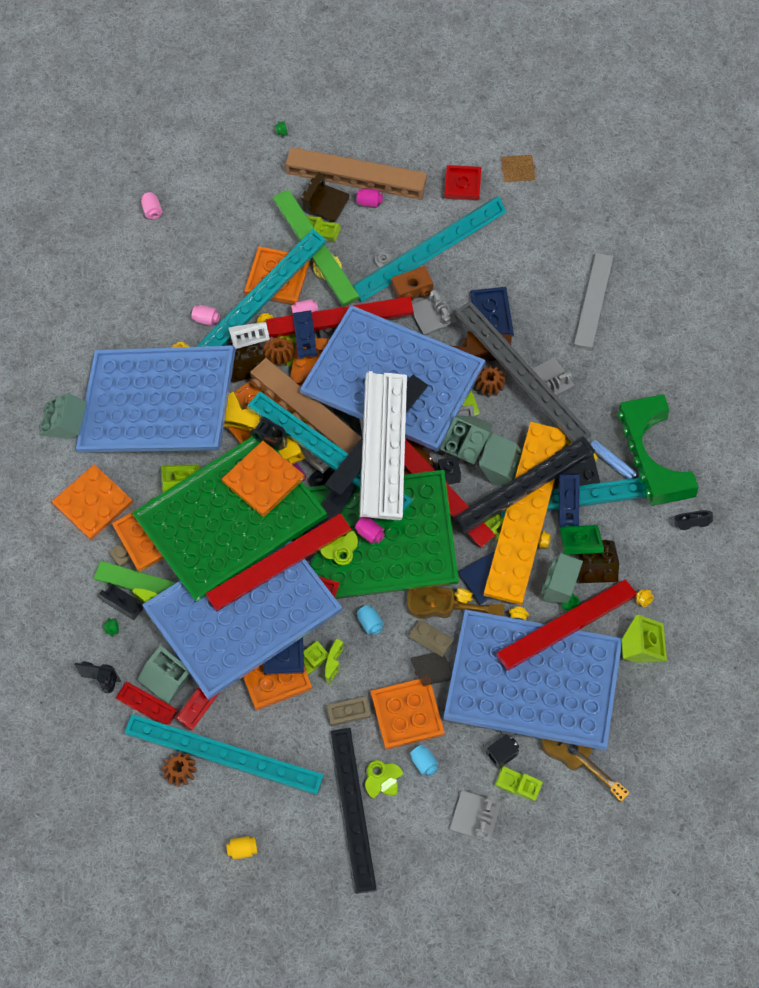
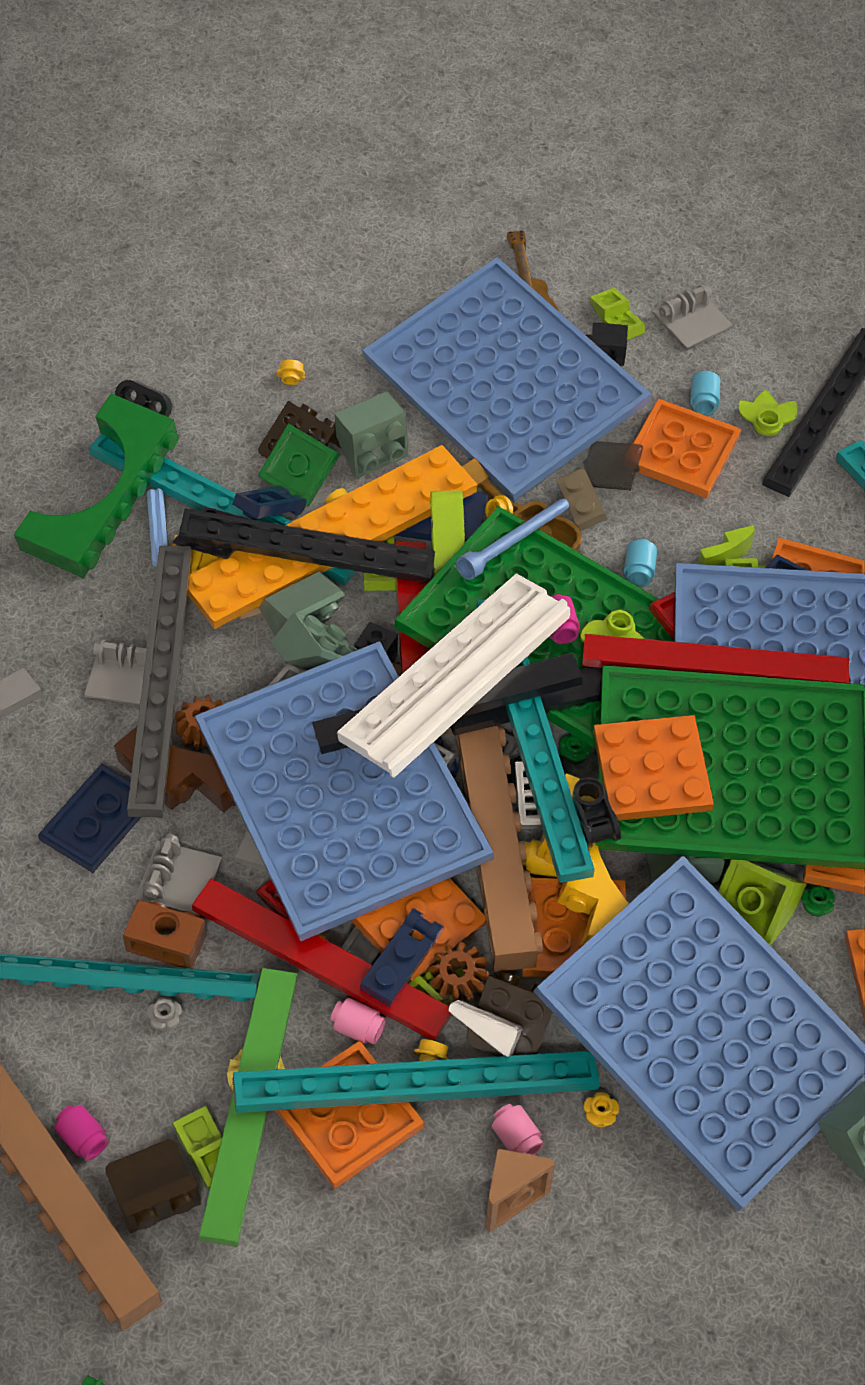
camera: 145 degrees left, 10 degrees down
(187, 288) = (516, 1185): none -> medium nougat slope
(348, 711) = (752, 494): dark tan plate -> none
(436, 526) = (473, 563): none -> medium blue piece
(473, 553) = (446, 525): none -> lime beam
(519, 613) = (456, 447): yellow plate -> none
(566, 625) = (416, 396): red tile -> none
(644, 641) = (345, 329): lime slope -> none

